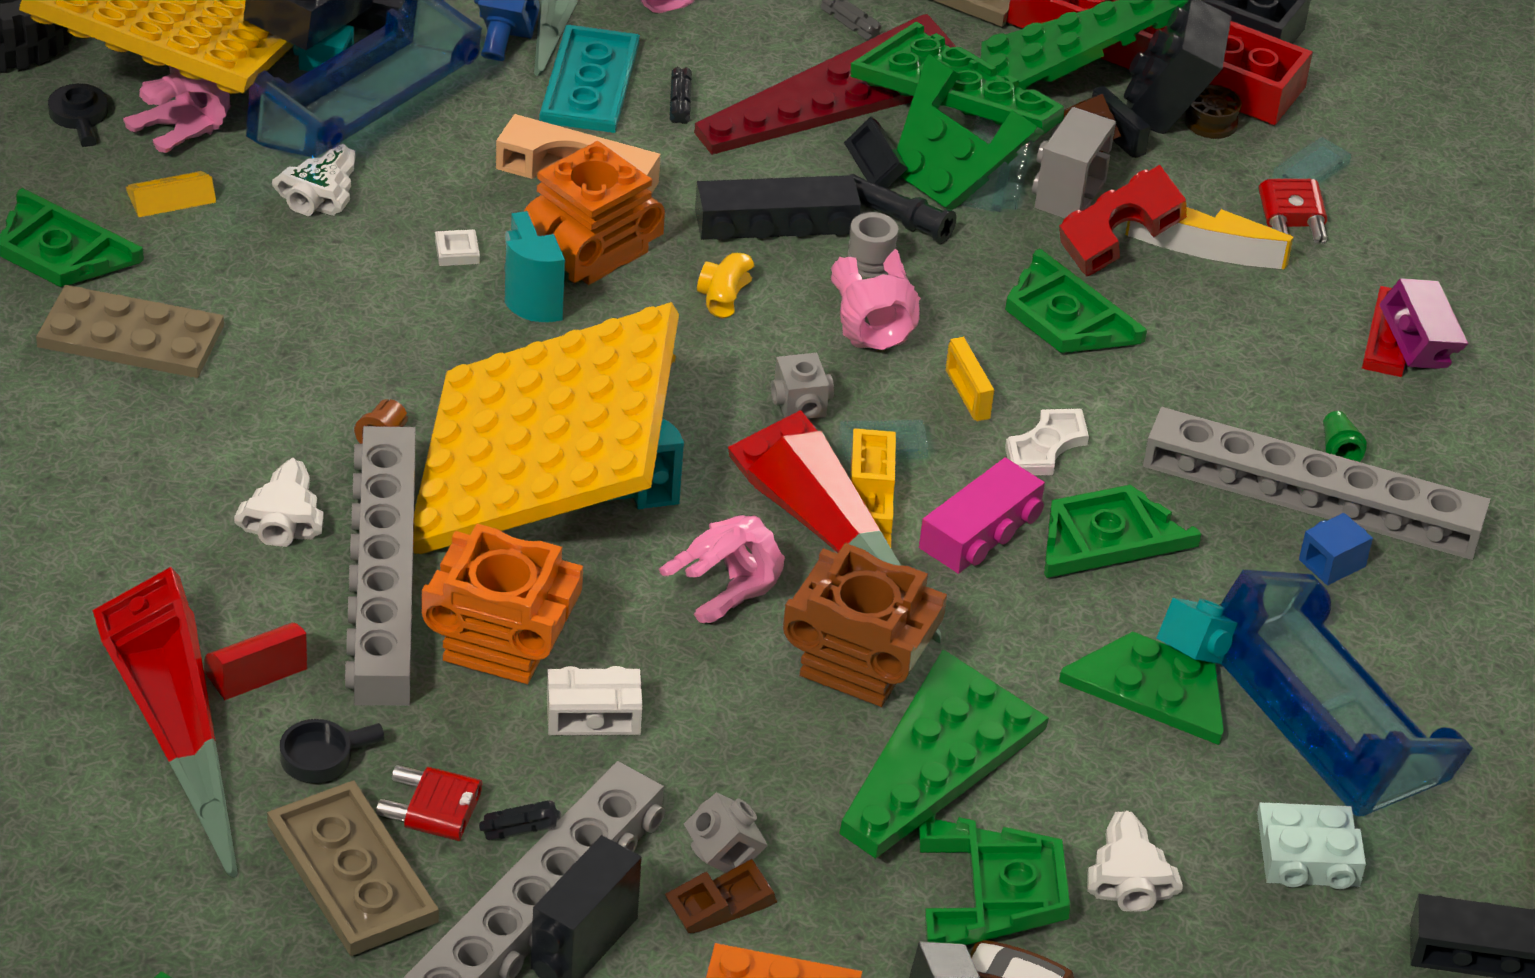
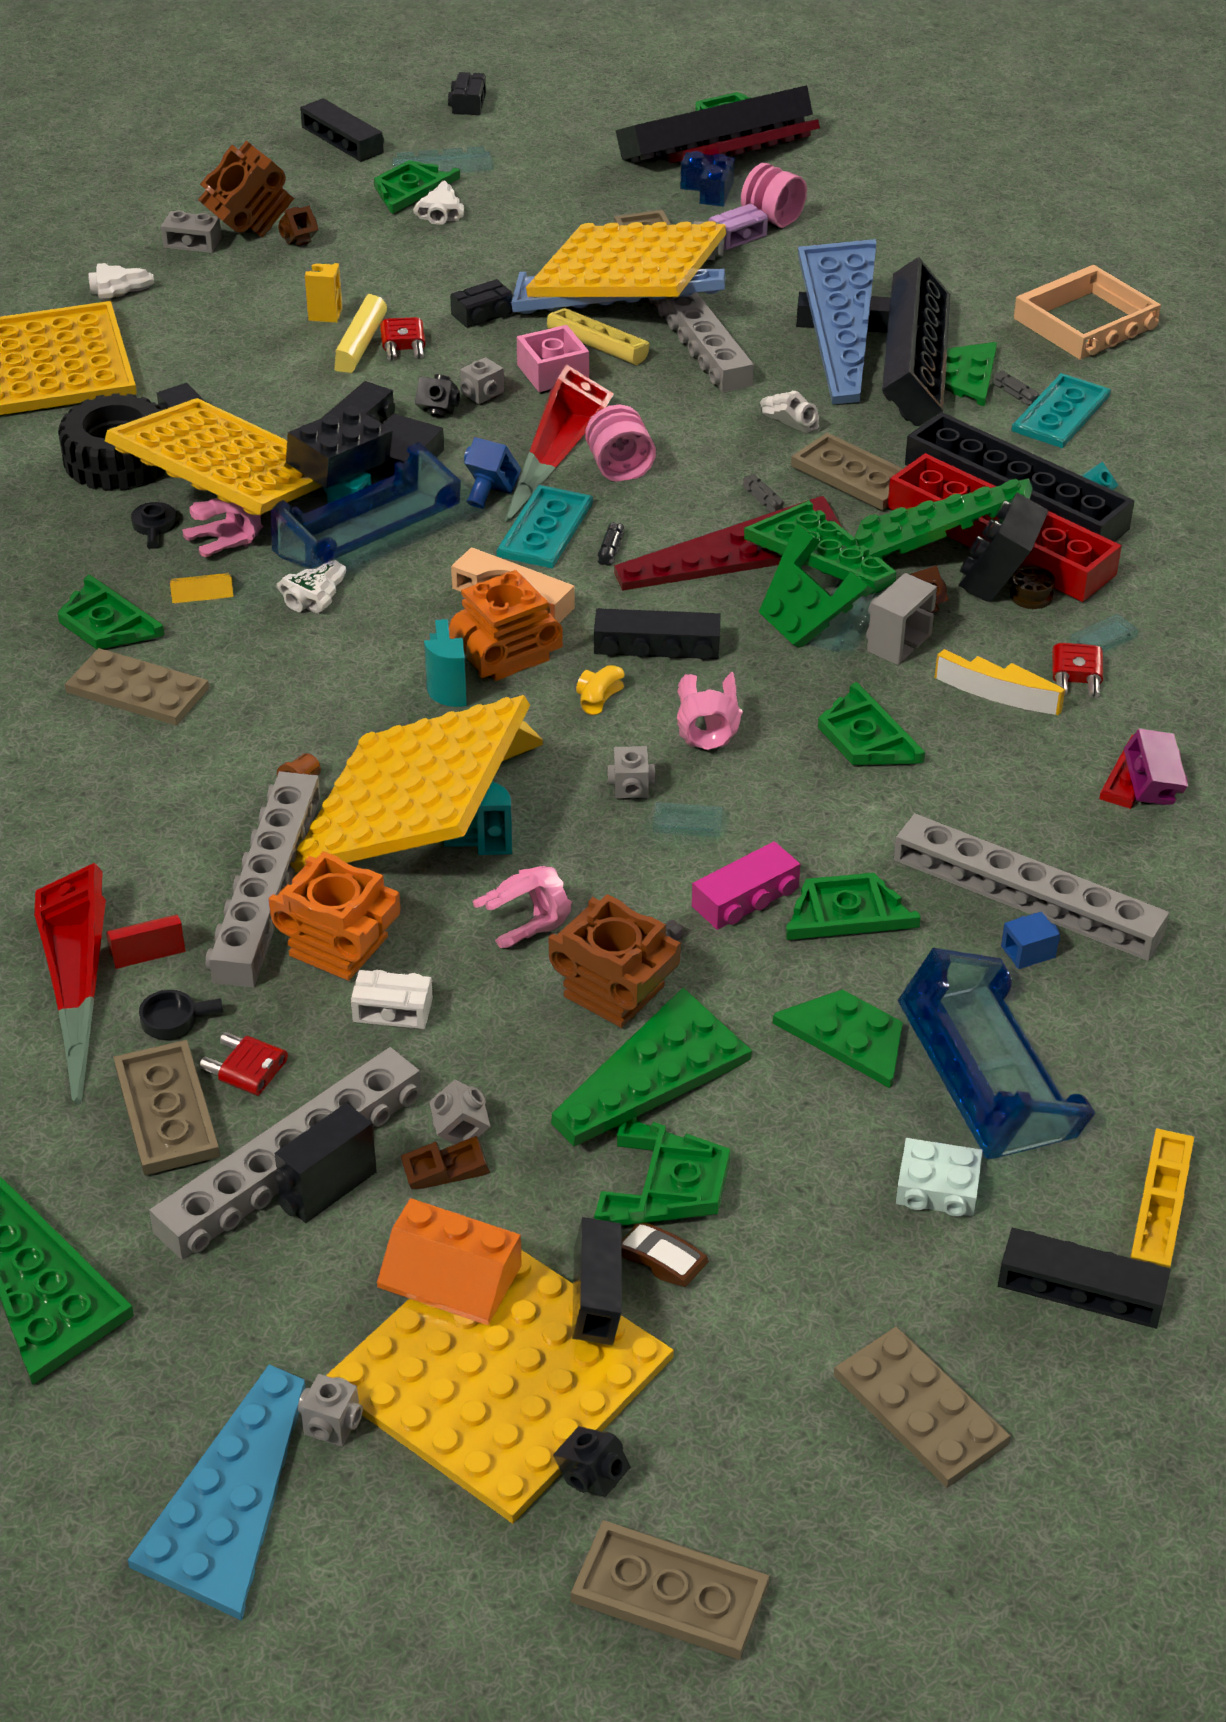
camera: 15 degrees right, 0 degrees up
(282, 508) = (204, 827): white rock -> none
(457, 247) = (402, 644): white tile -> none
(520, 820) = (302, 1084): black axle -> none
(804, 477) = (612, 845): red plate -> none
(871, 242) = (719, 662): light grey piece -> none
(875, 154) = (748, 600): black tile -> none
(875, 474) = (662, 863): yellow slope -> none
(913, 212) = (764, 646): black pin -> none
(969, 379) = (769, 778): yellow tile -> none
(1052, 436) = (810, 838): white tile -> none
(1131, 867) = (783, 1178): white rock -> none
(1132, 128) = (958, 593): black tile -> none
(1146, 199) = (945, 649): red arch -> none
(1197, 629) = (891, 993): teal brick -> none
(1343, 437) = (1064, 852): green cone -> none

